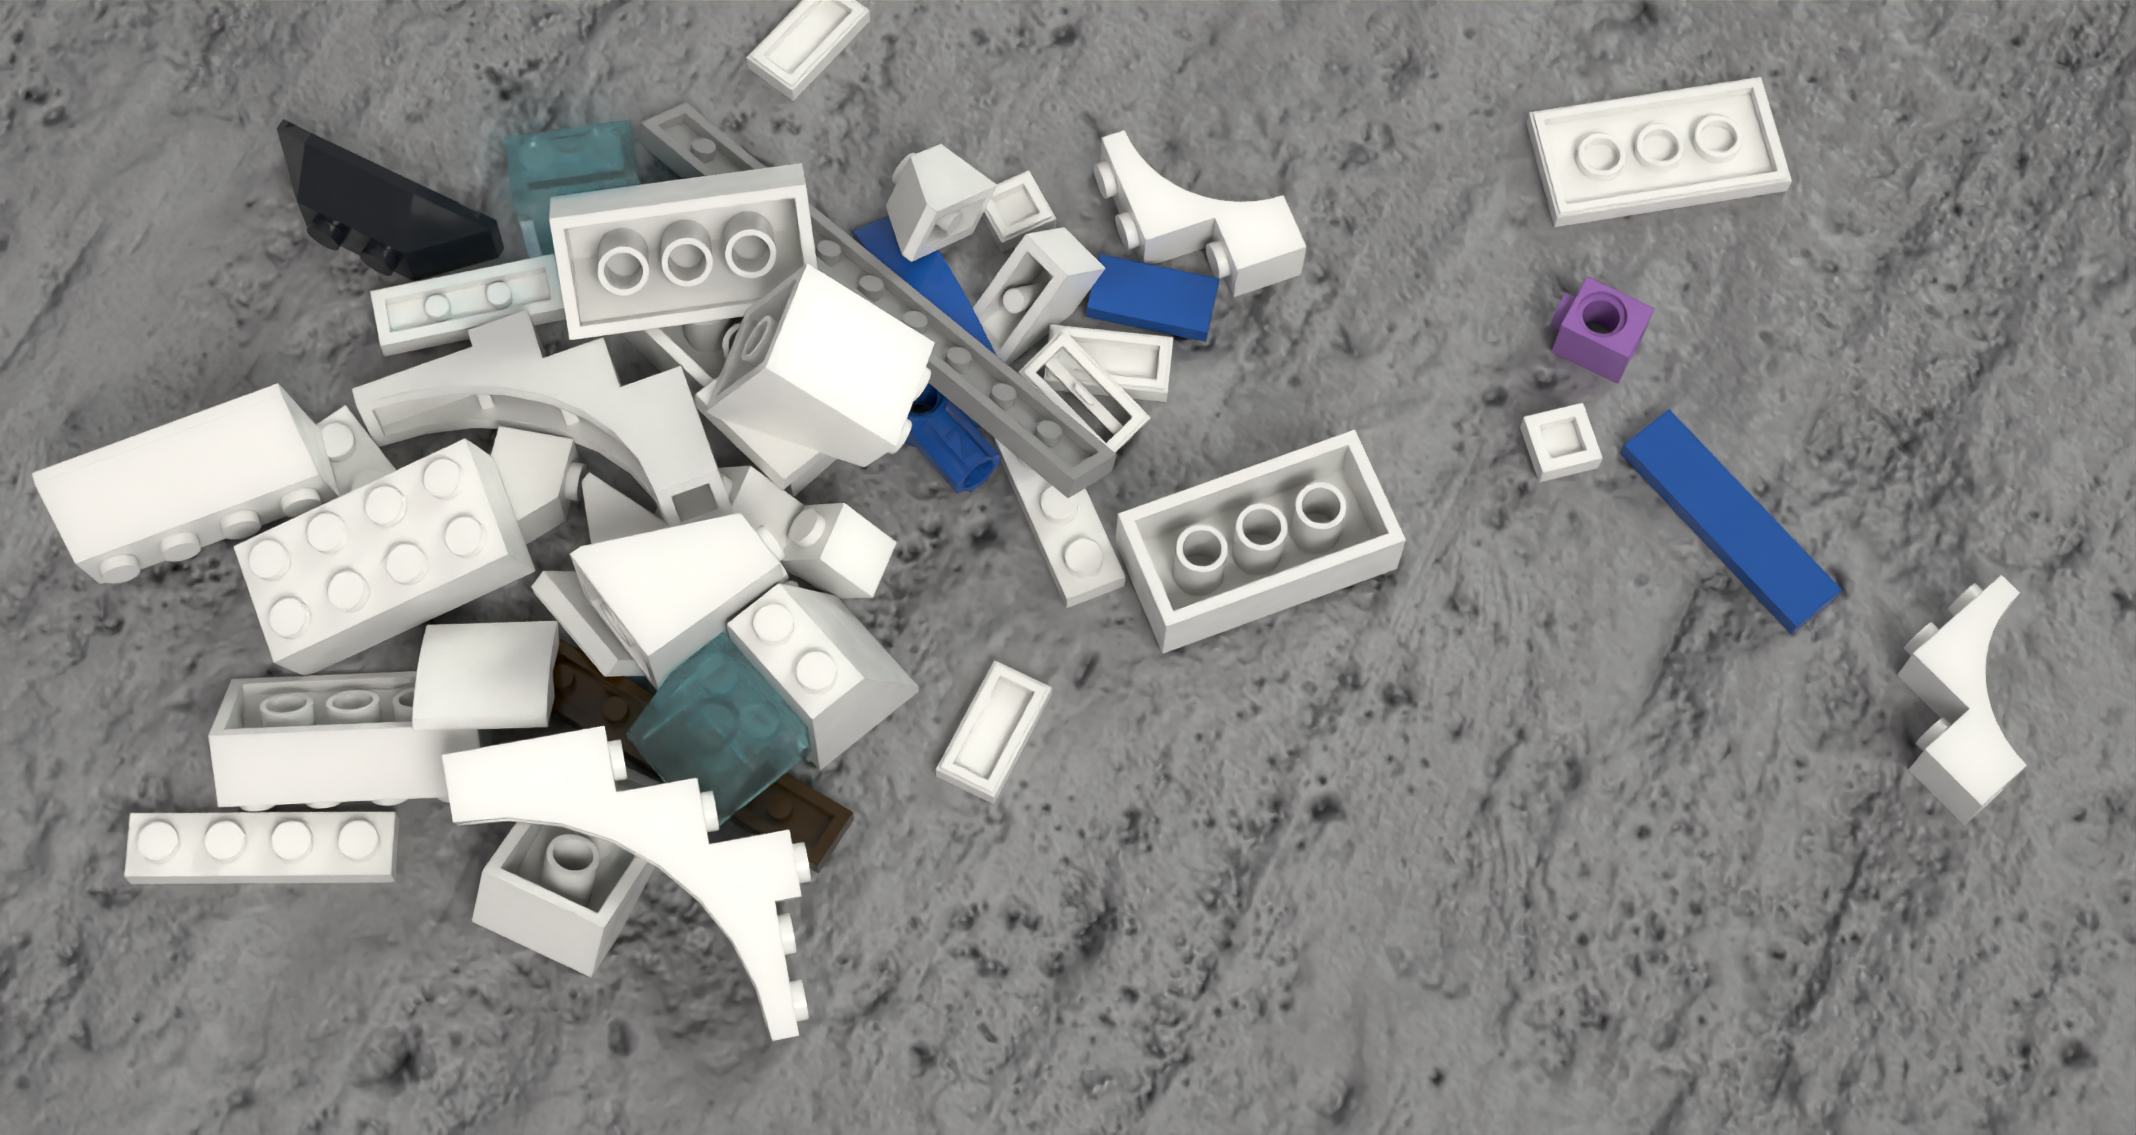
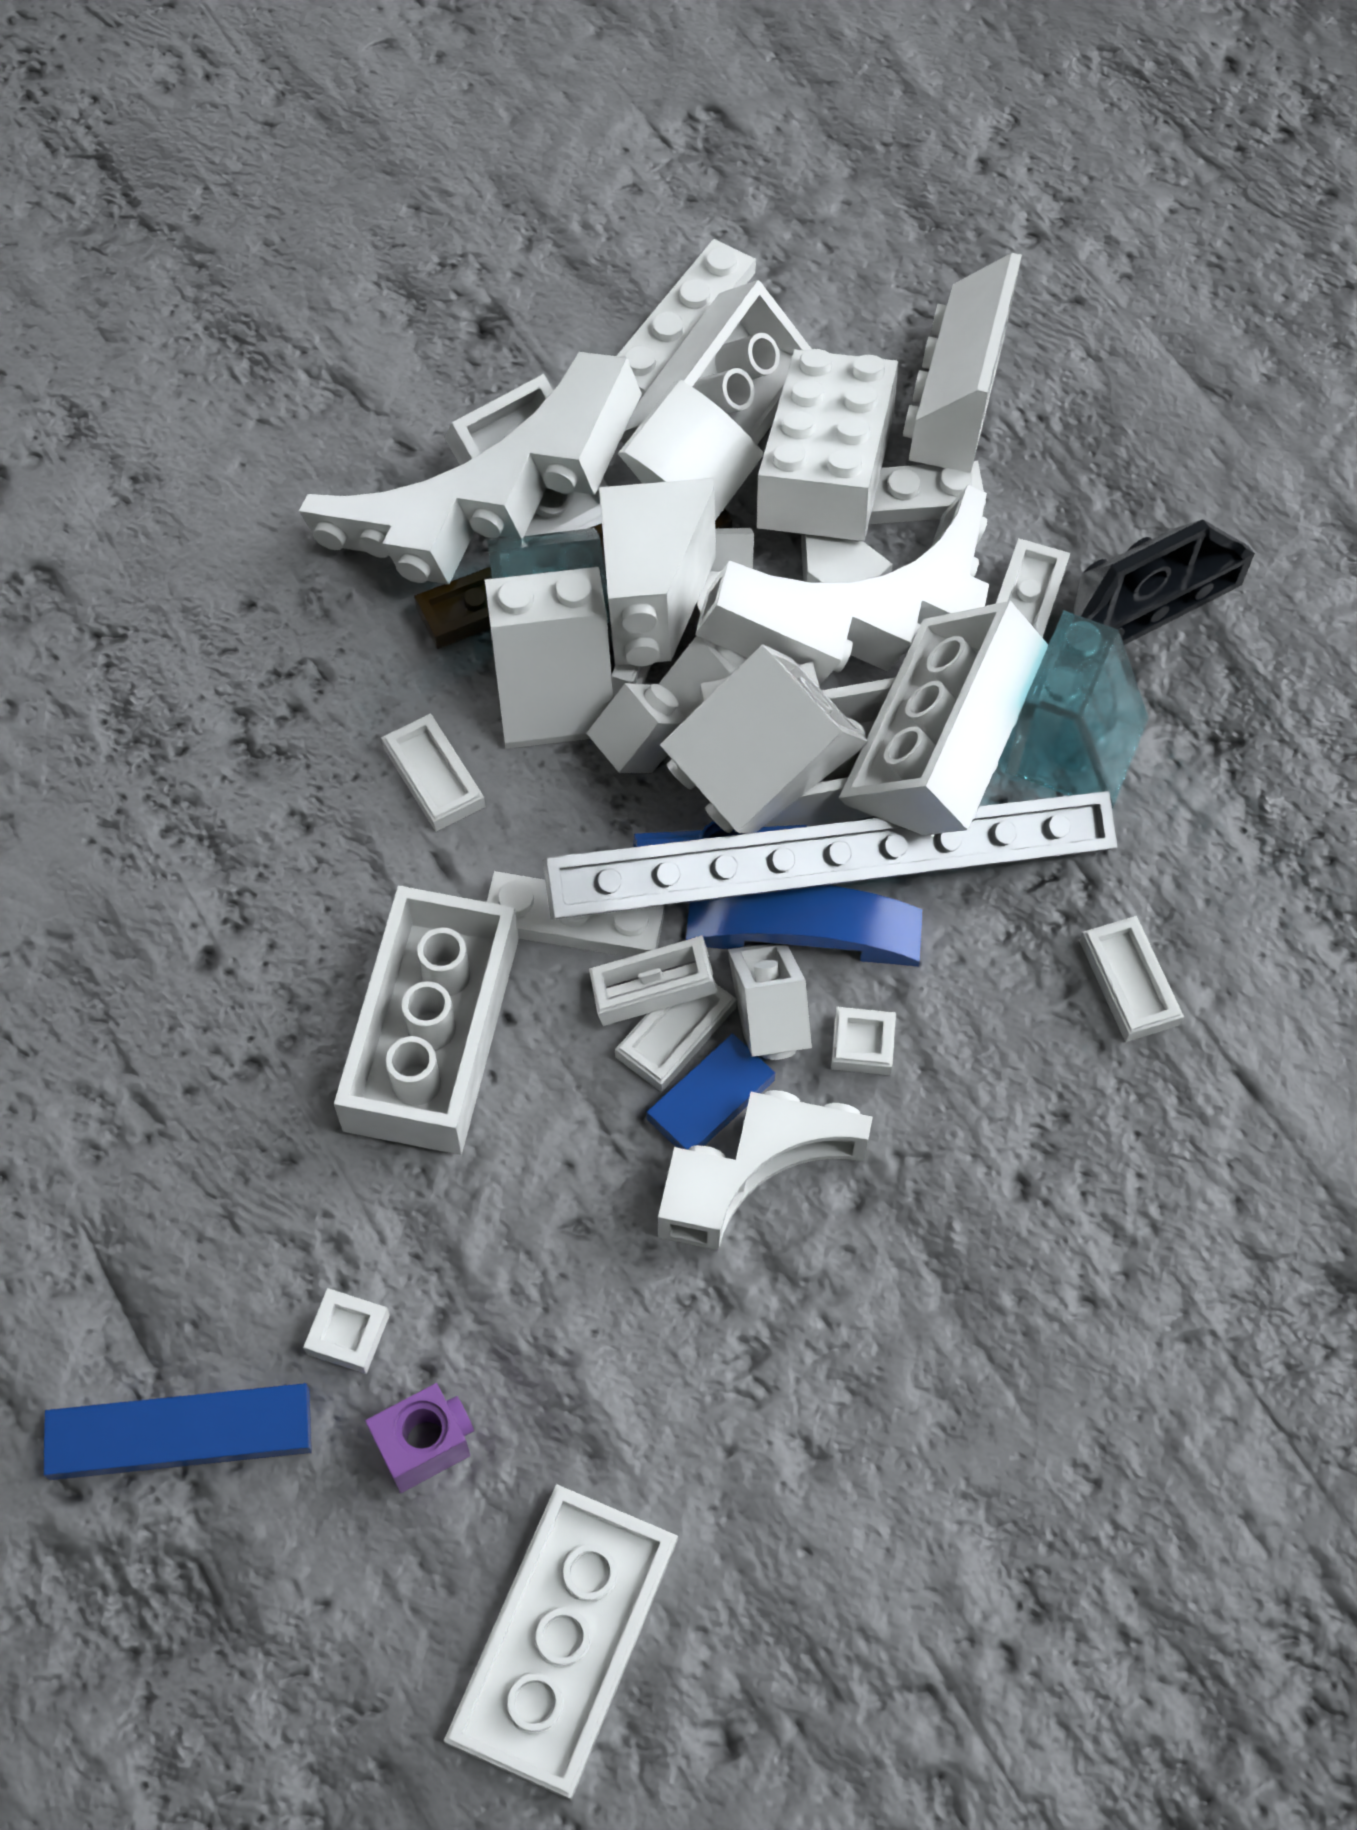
camera: 125 degrees right, 5 degrees down
(935, 201) = (895, 958): white slope -> none

